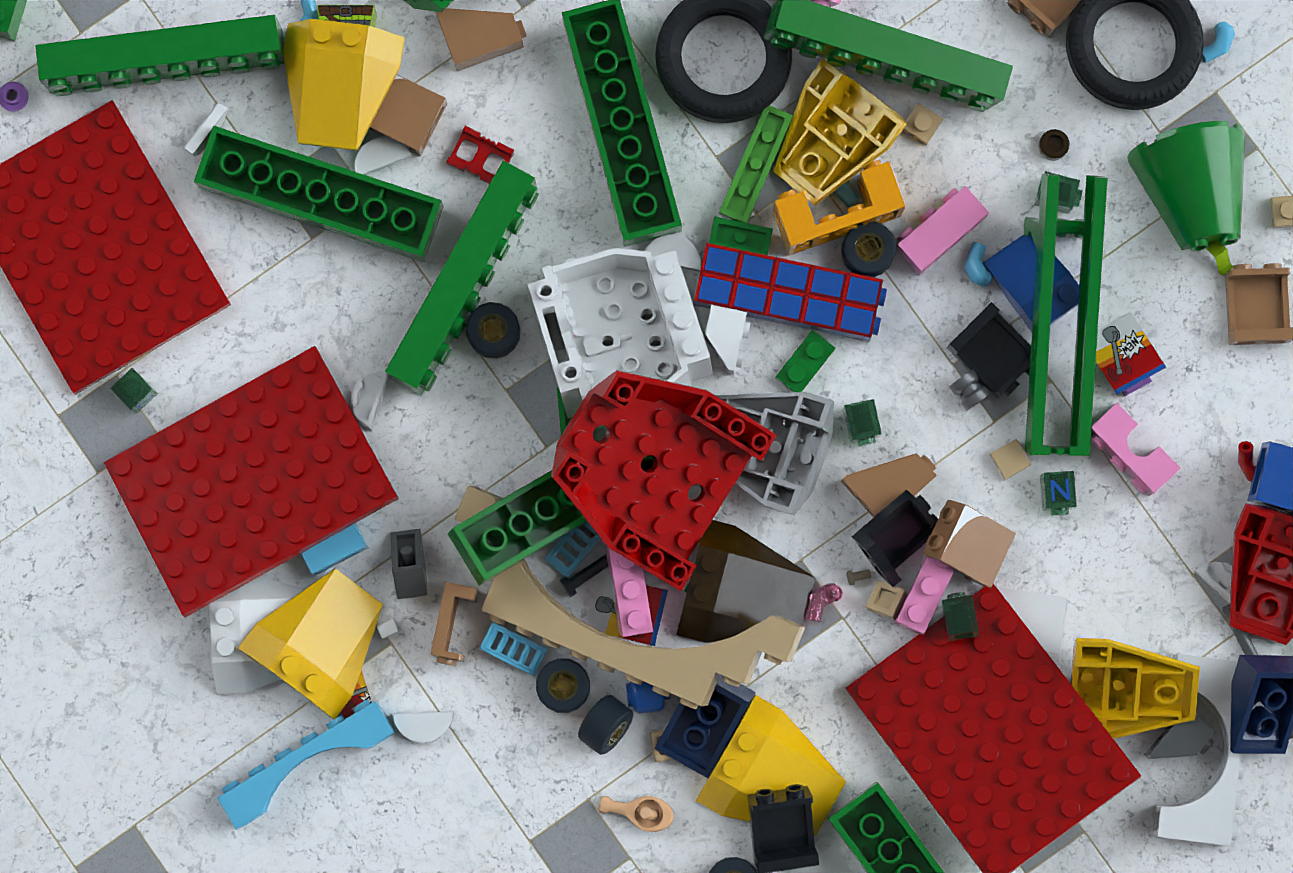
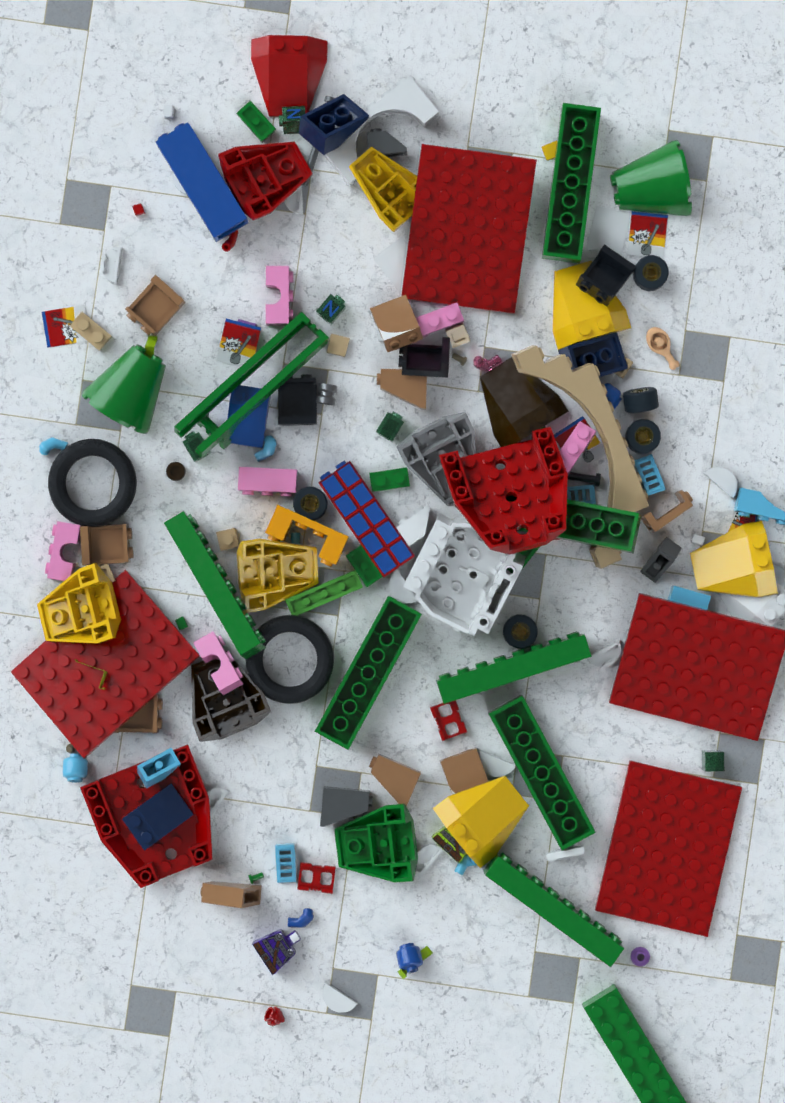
camera: 140 degrees left, 5 degrees up
(960, 616) = (433, 294): clear green brick -> none

